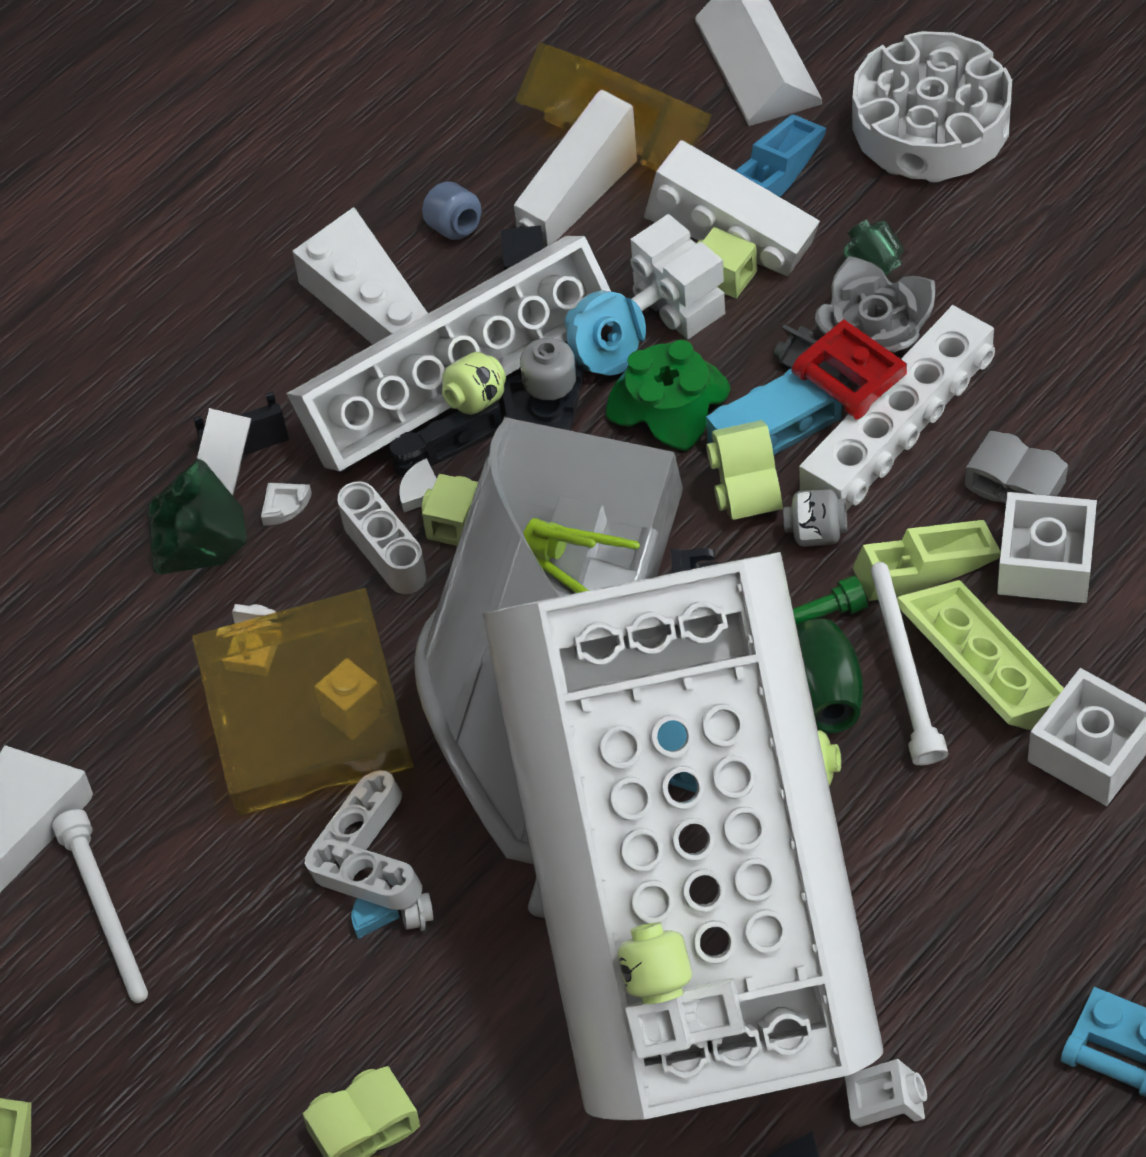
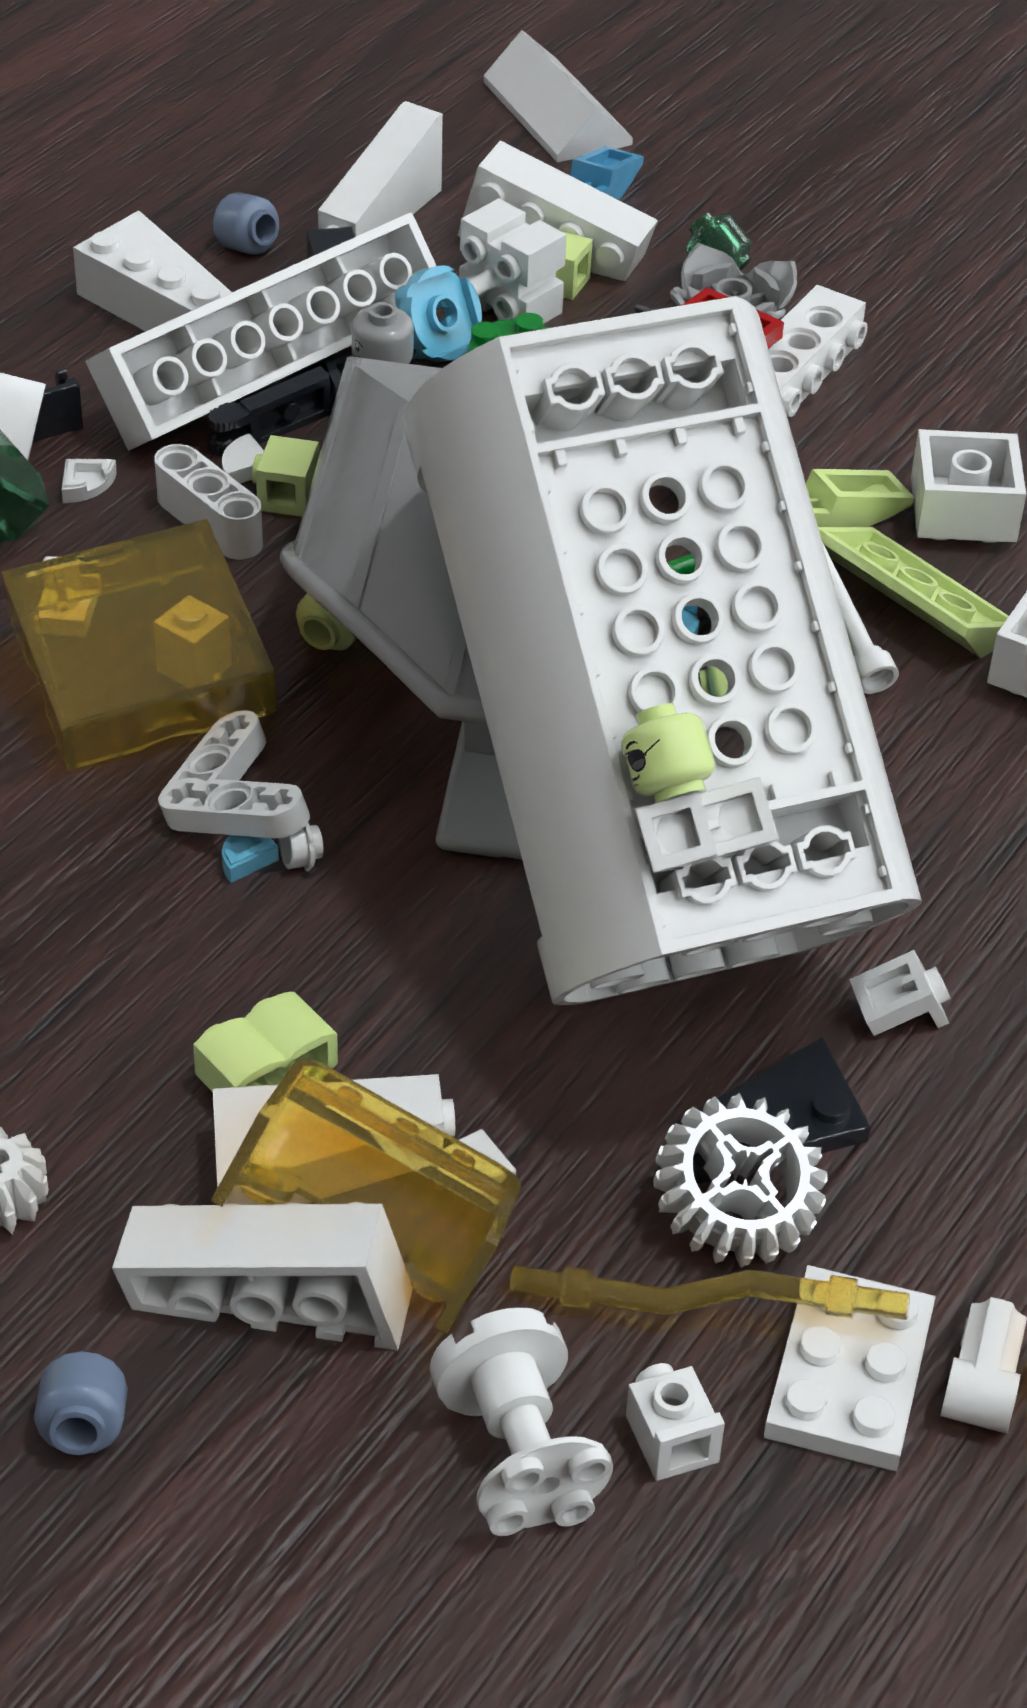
camera: 15 degrees left, 10 degrees down
(473, 383) = (300, 349): yellowish green head -> none
(567, 83) = (353, 117): clear yellow windscreen -> none
(931, 106) = (754, 133): white brick -> none
(1008, 465) = (894, 419): light grey brick -> none

